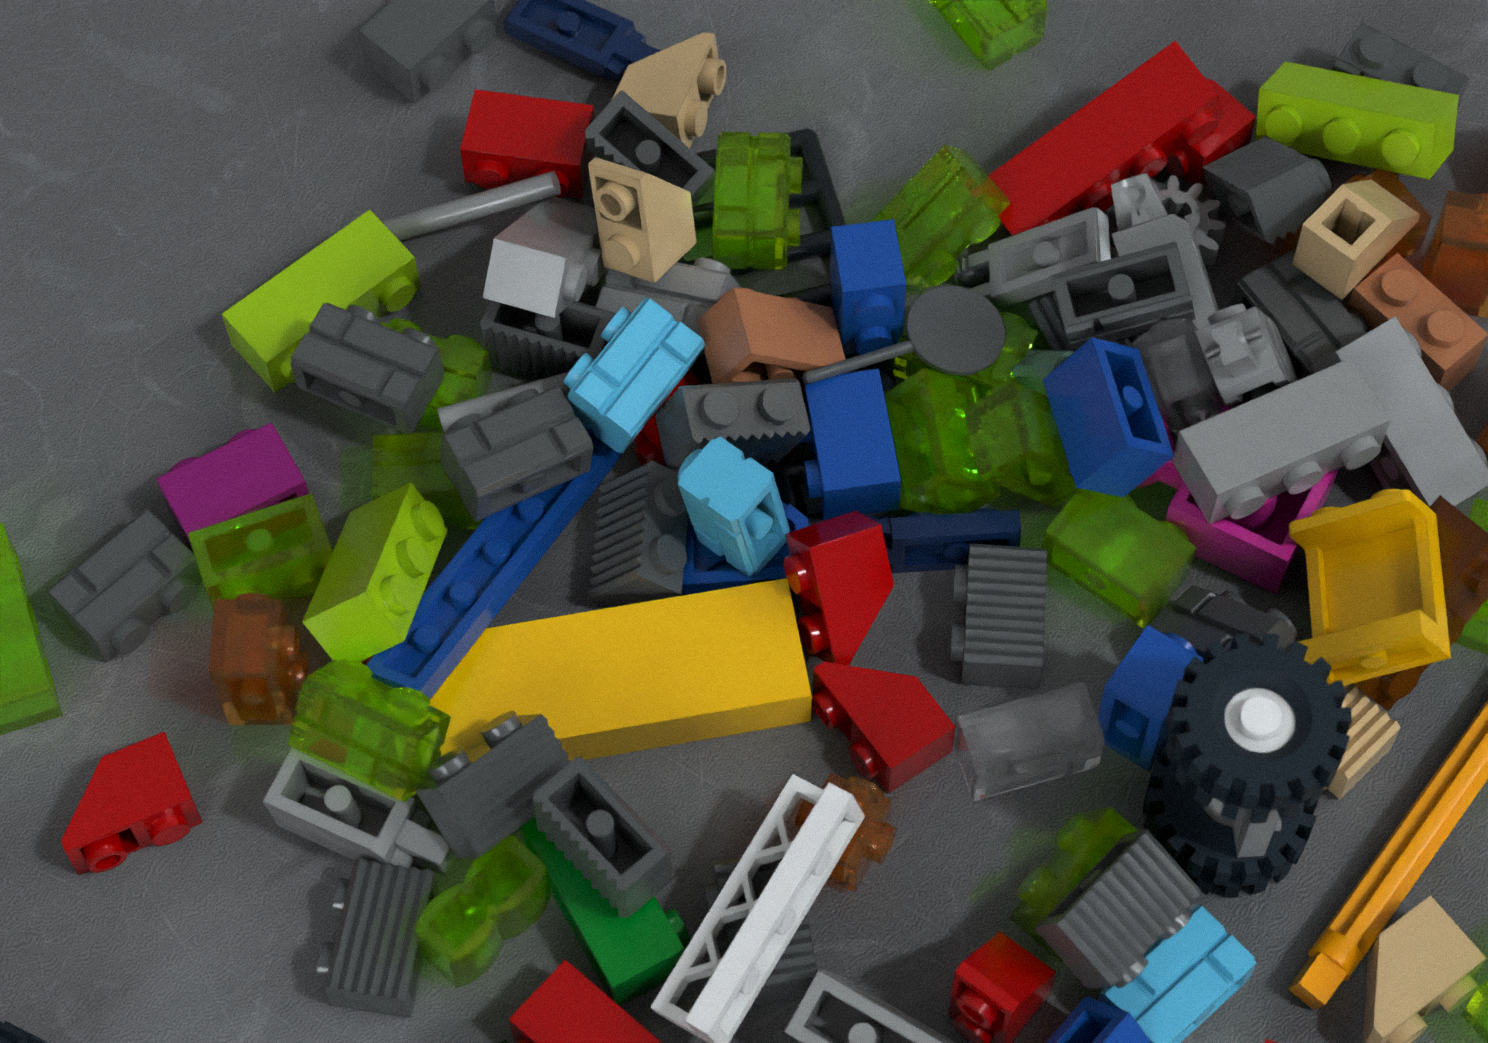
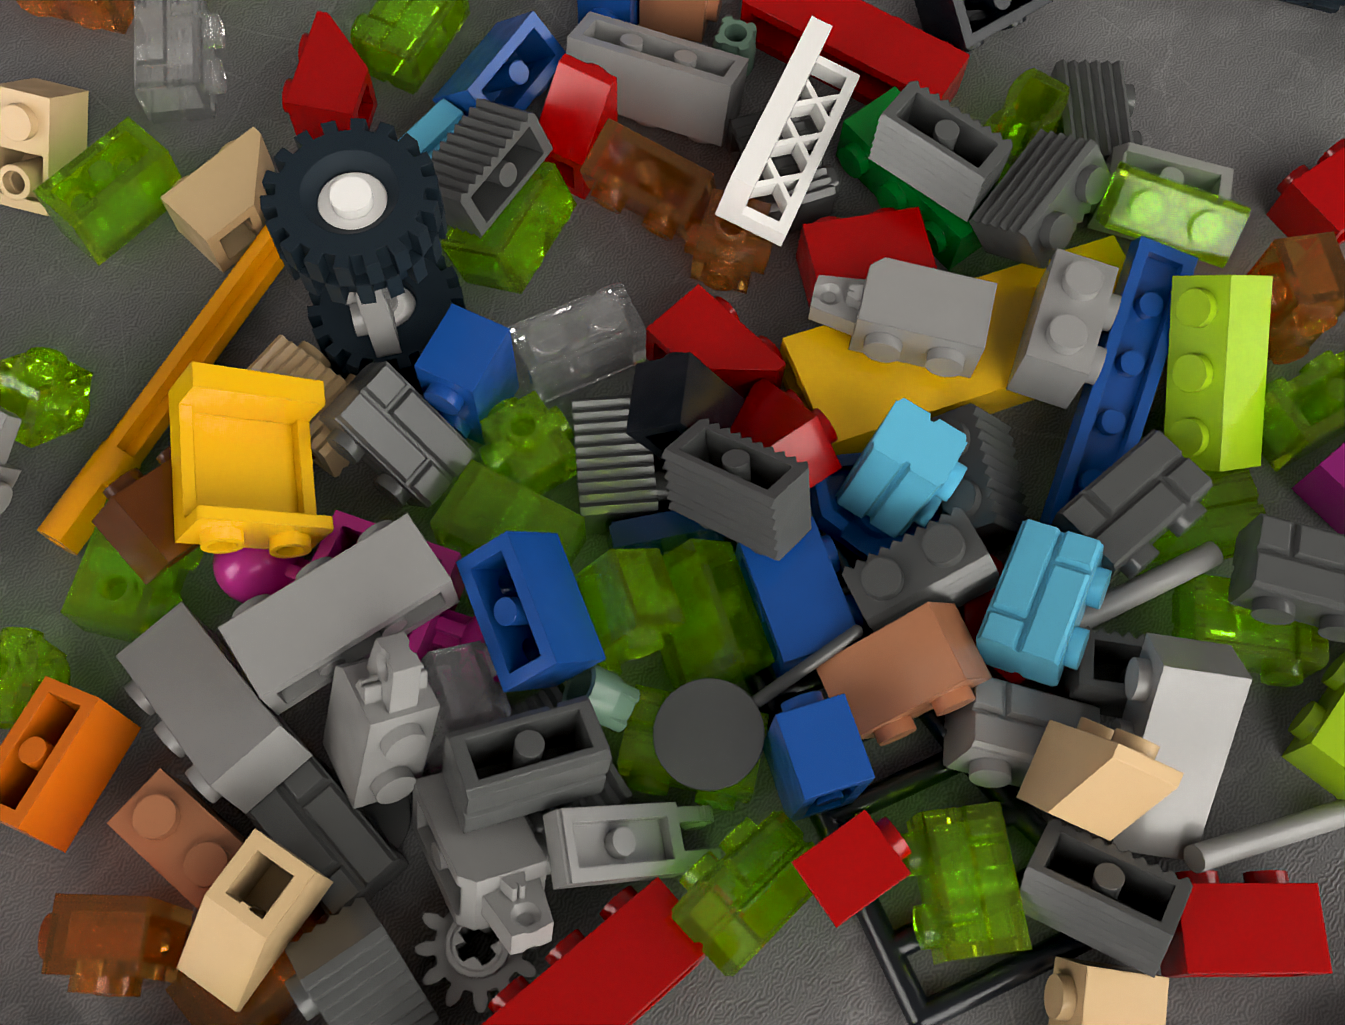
camera: 165 degrees right, 5 degrees up
(524, 628) = (1064, 329): none -> light grey brick
(680, 671) = (909, 315): none -> light grey hinge
(699, 786) = (853, 243): none -> red brick
(849, 189) = (854, 866): none -> red slope
(900, 492) = (739, 488): none -> dark grey brick
(921, 910) = (647, 180): none -> clear orange brick
(929, 615) = (673, 396): none -> black brick
(1089, 631) = (529, 443): none -> clear neon green brick

